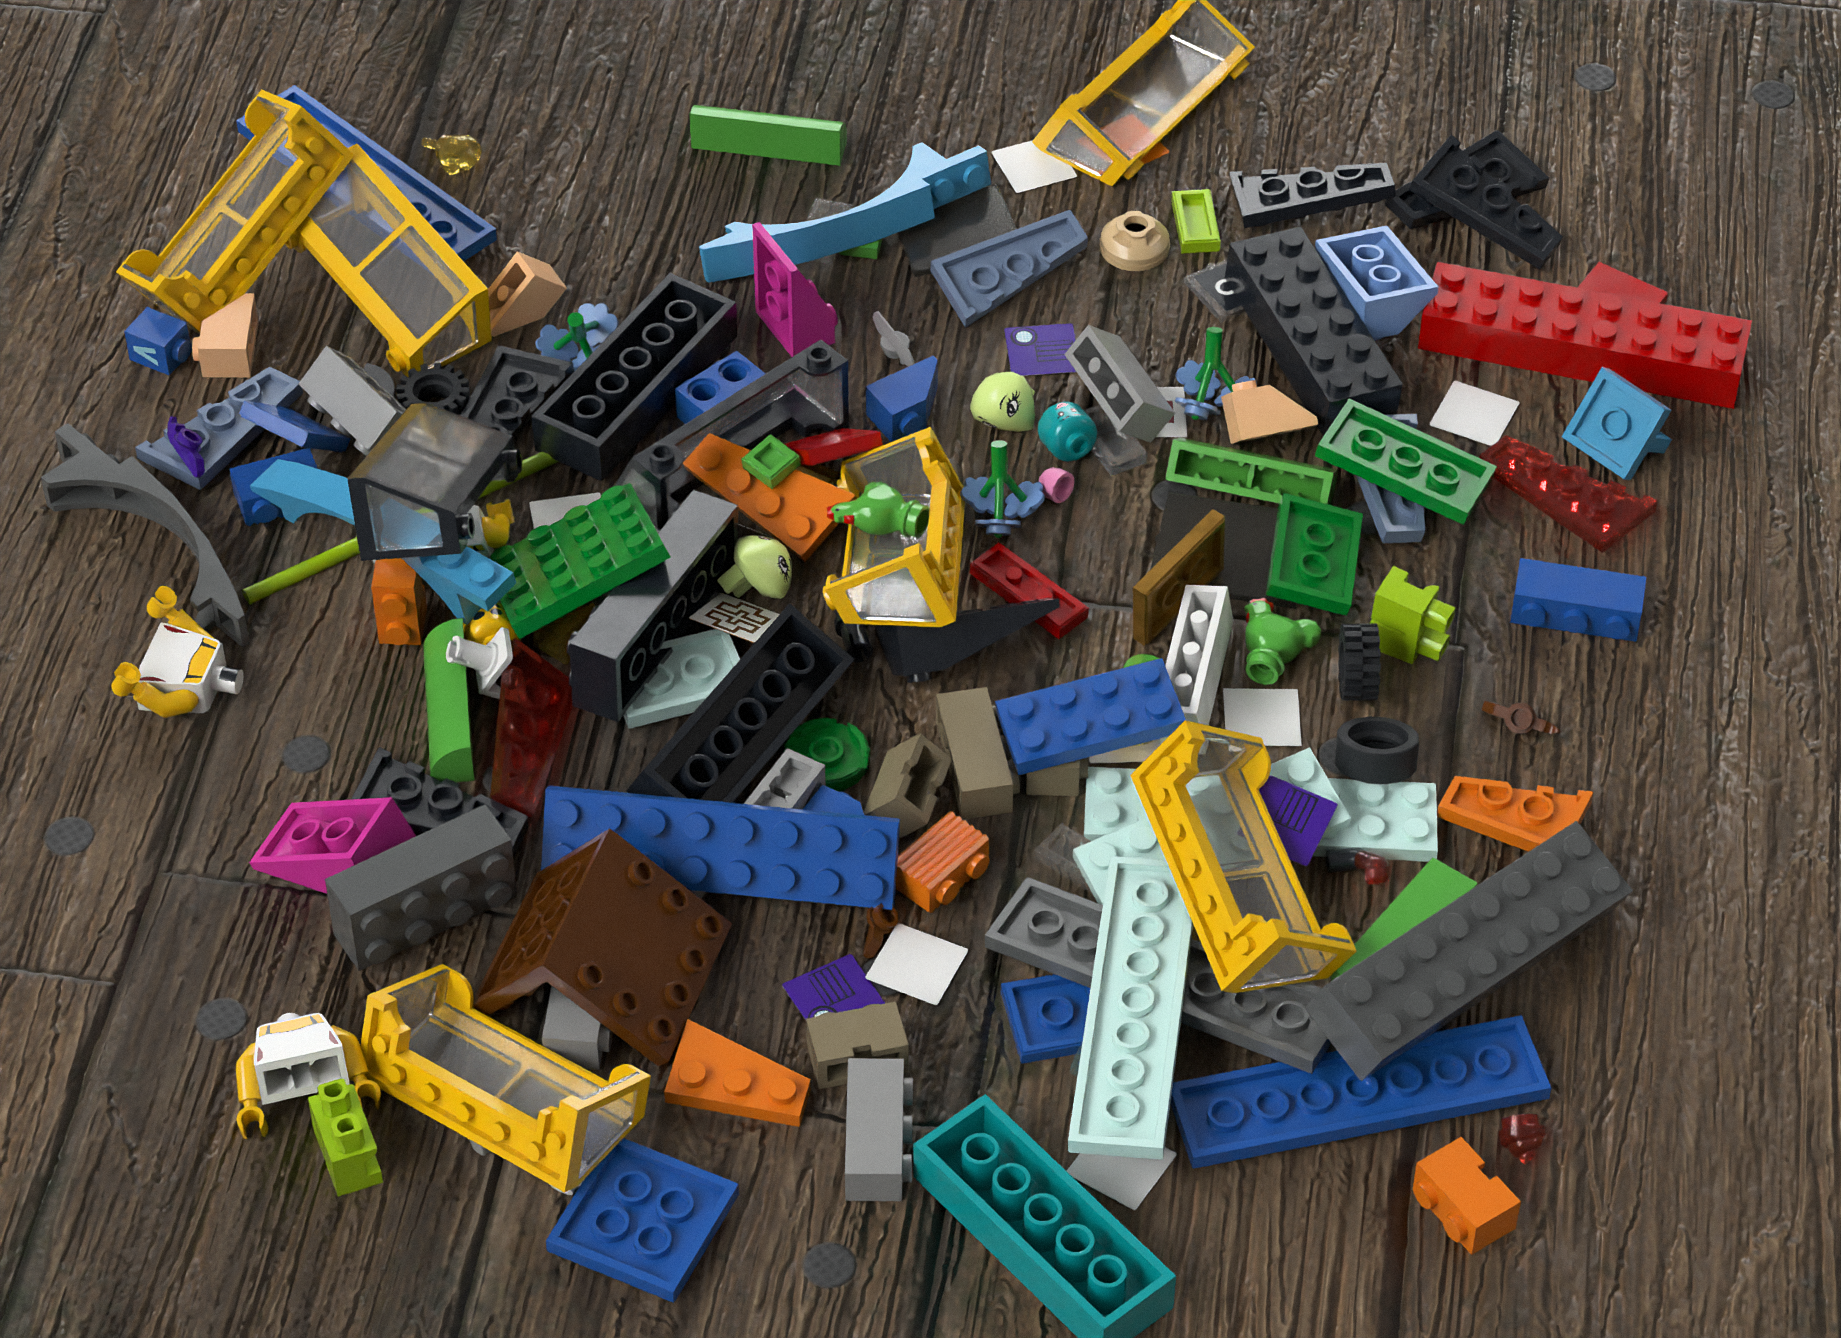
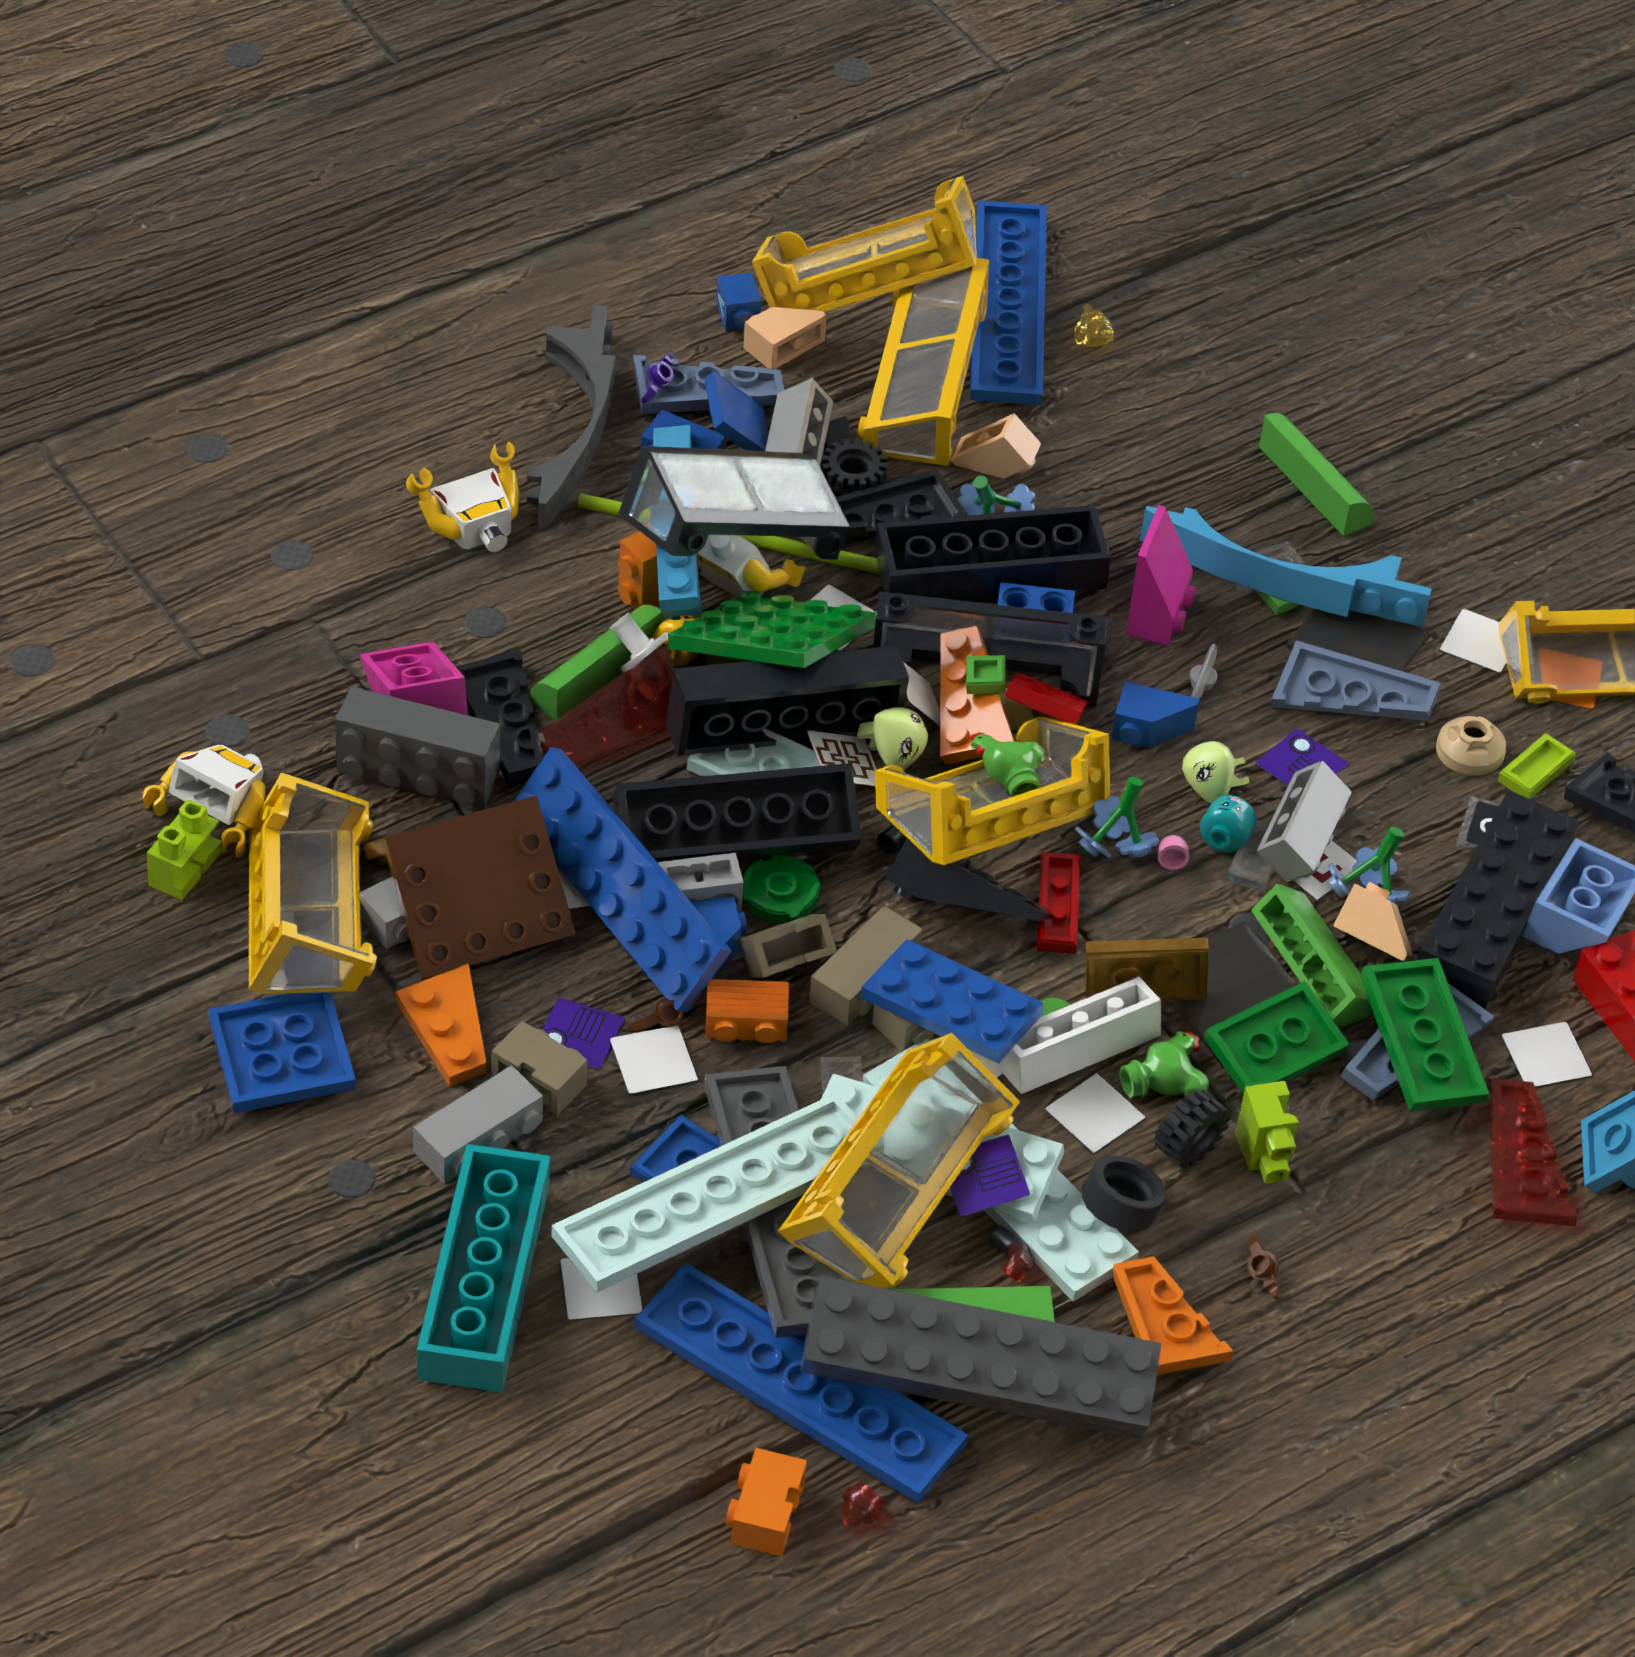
camera: 45 degrees right, 0 degrees up
(1578, 599) = (1418, 1229): blue brick -> none

